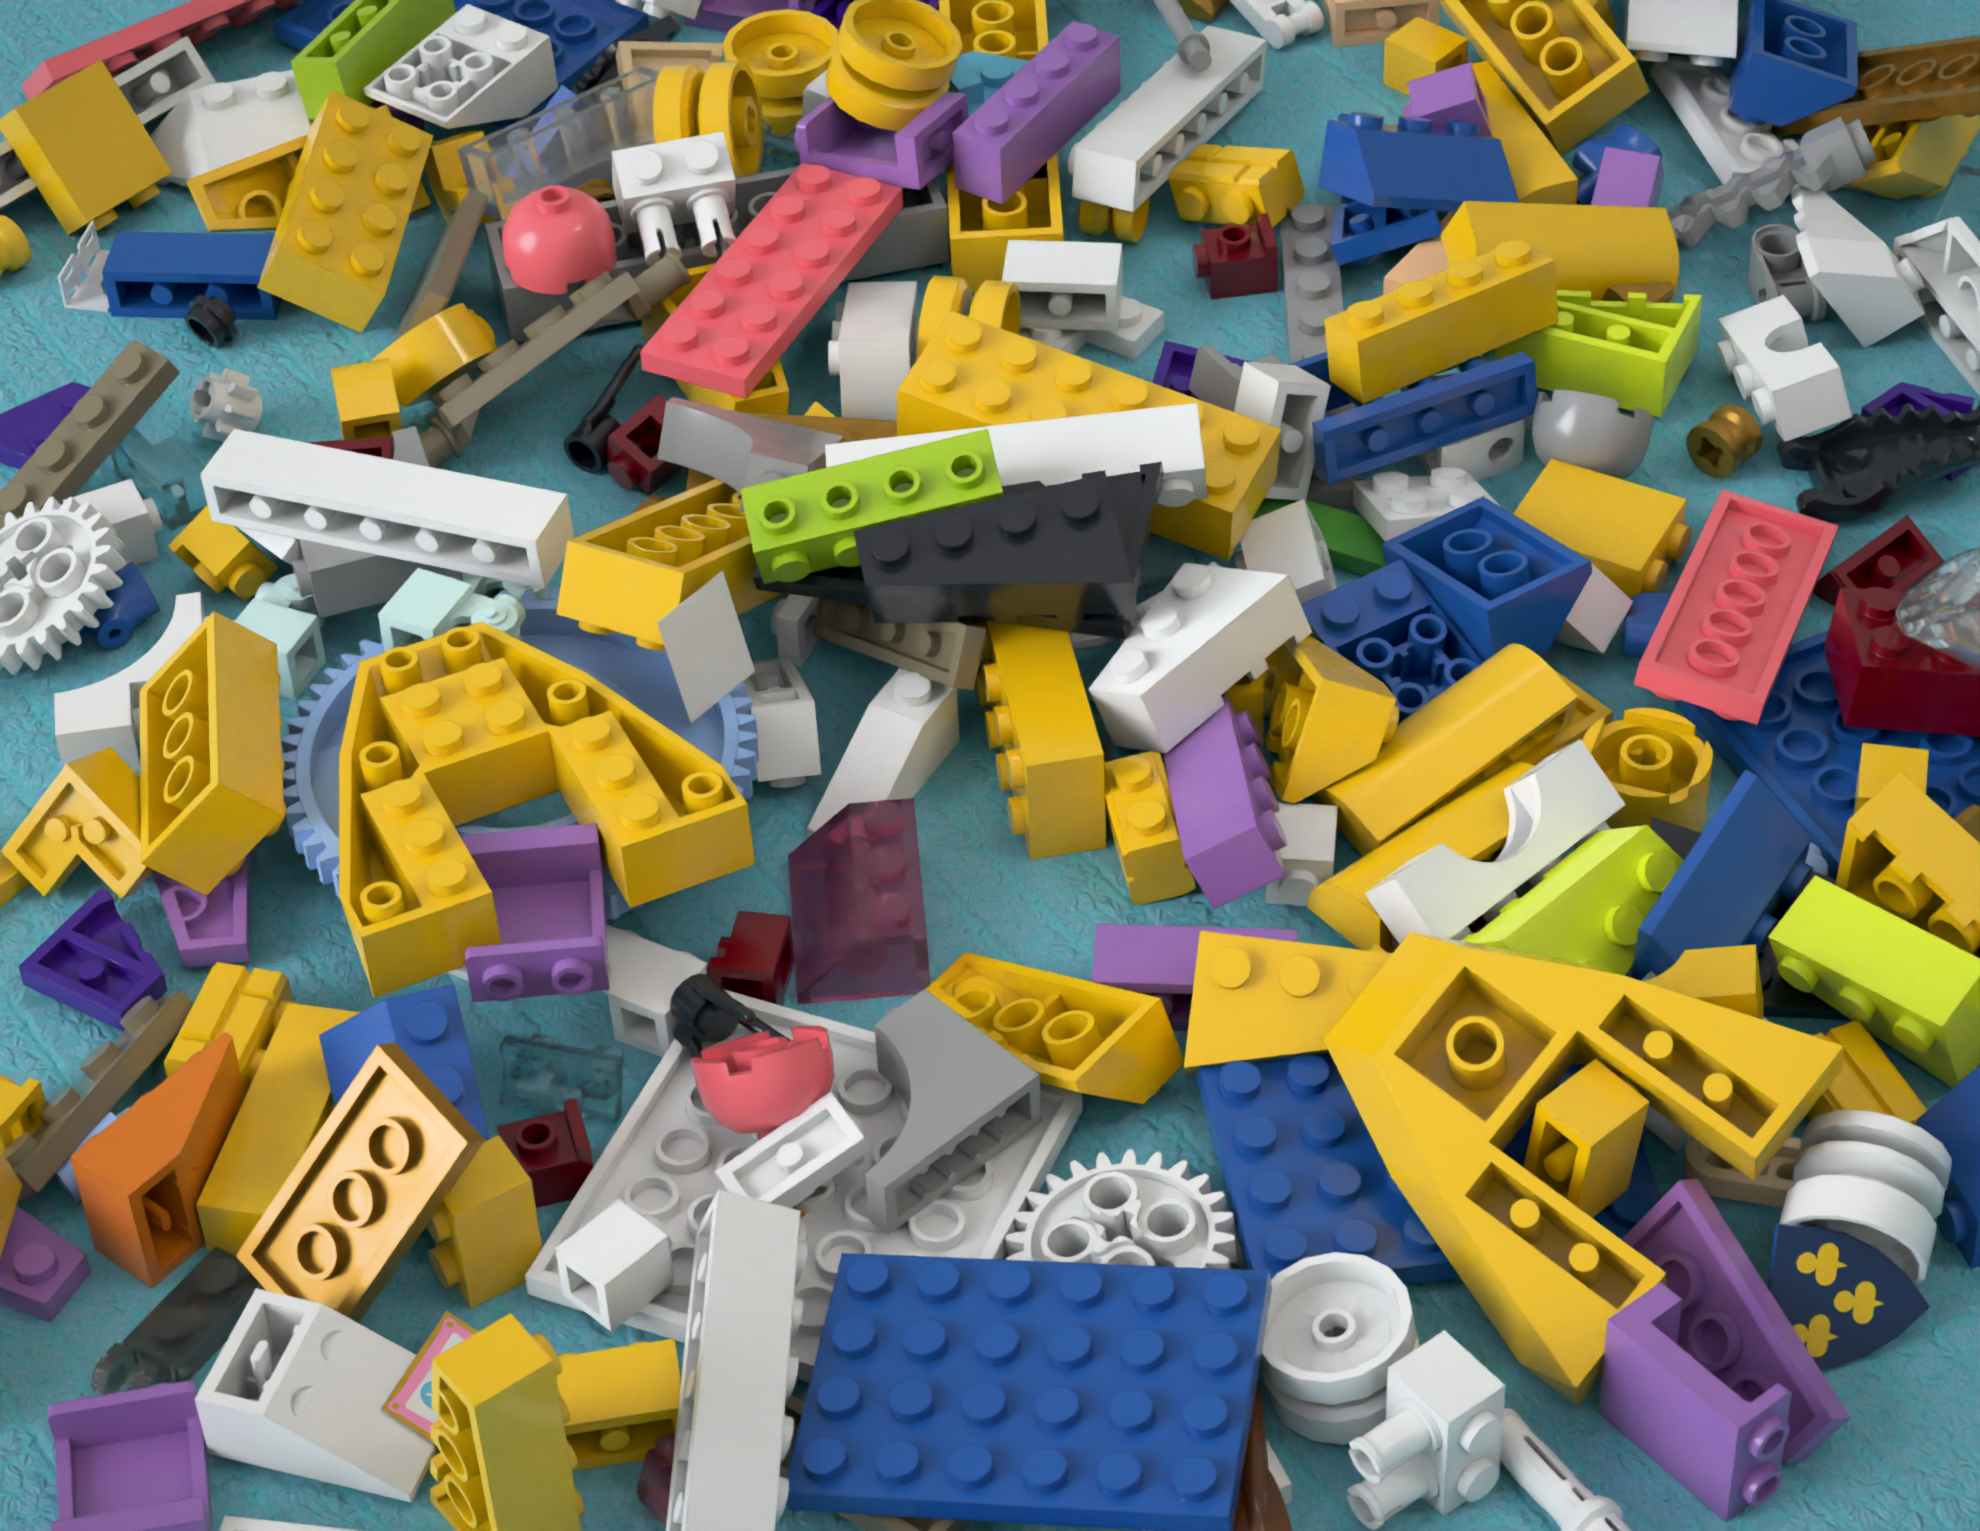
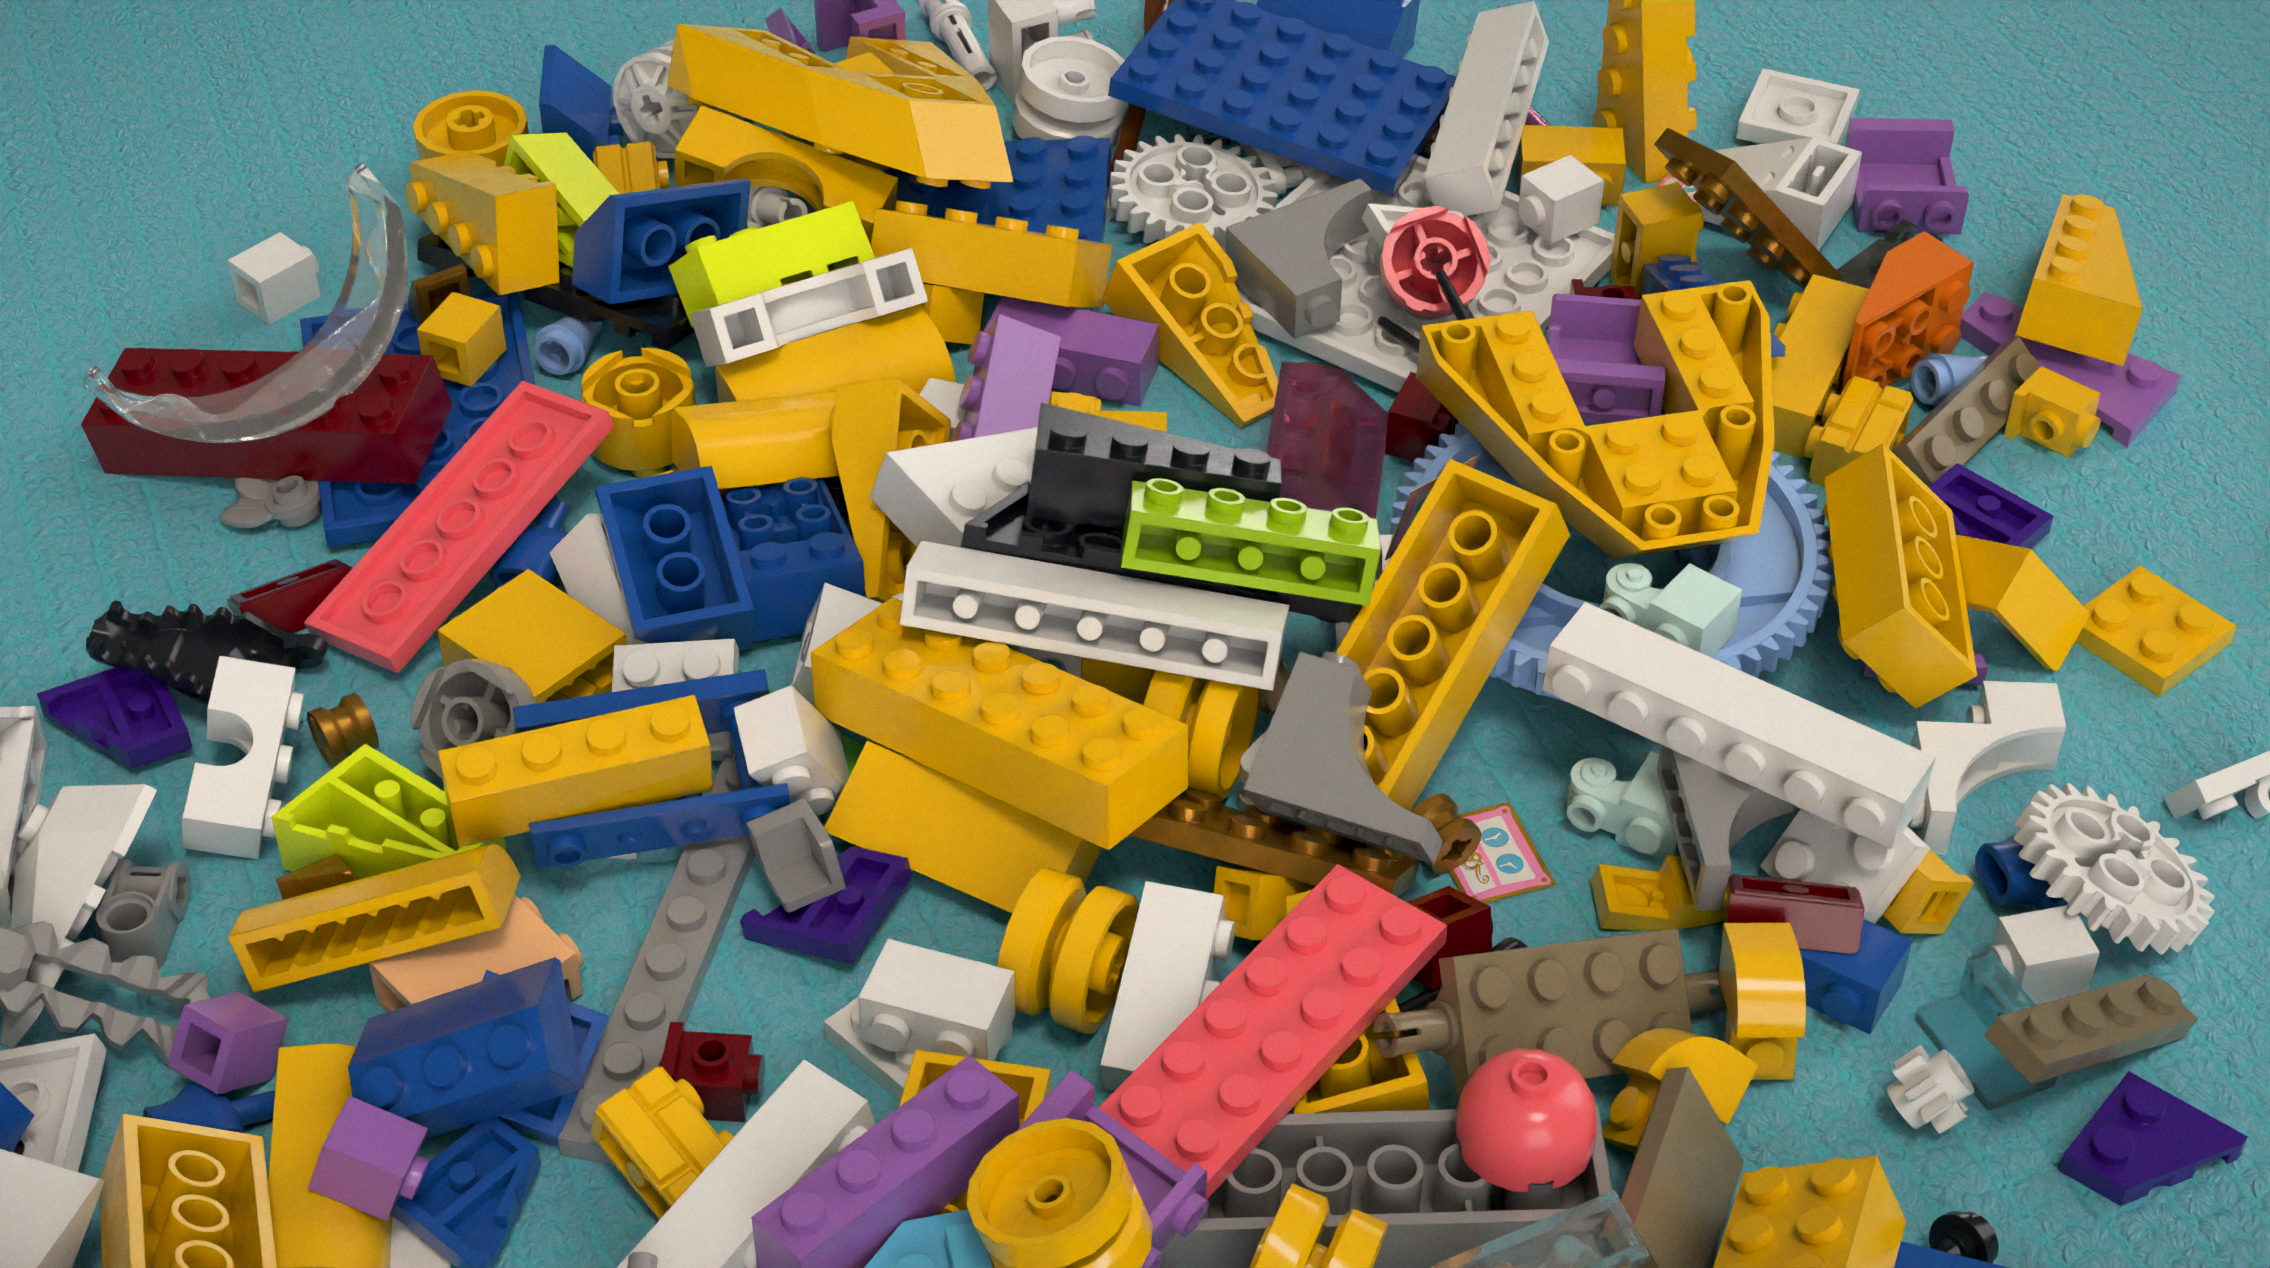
camera: 170 degrees left, 0 degrees up
(676, 186) = (1375, 1138): white brick -> none

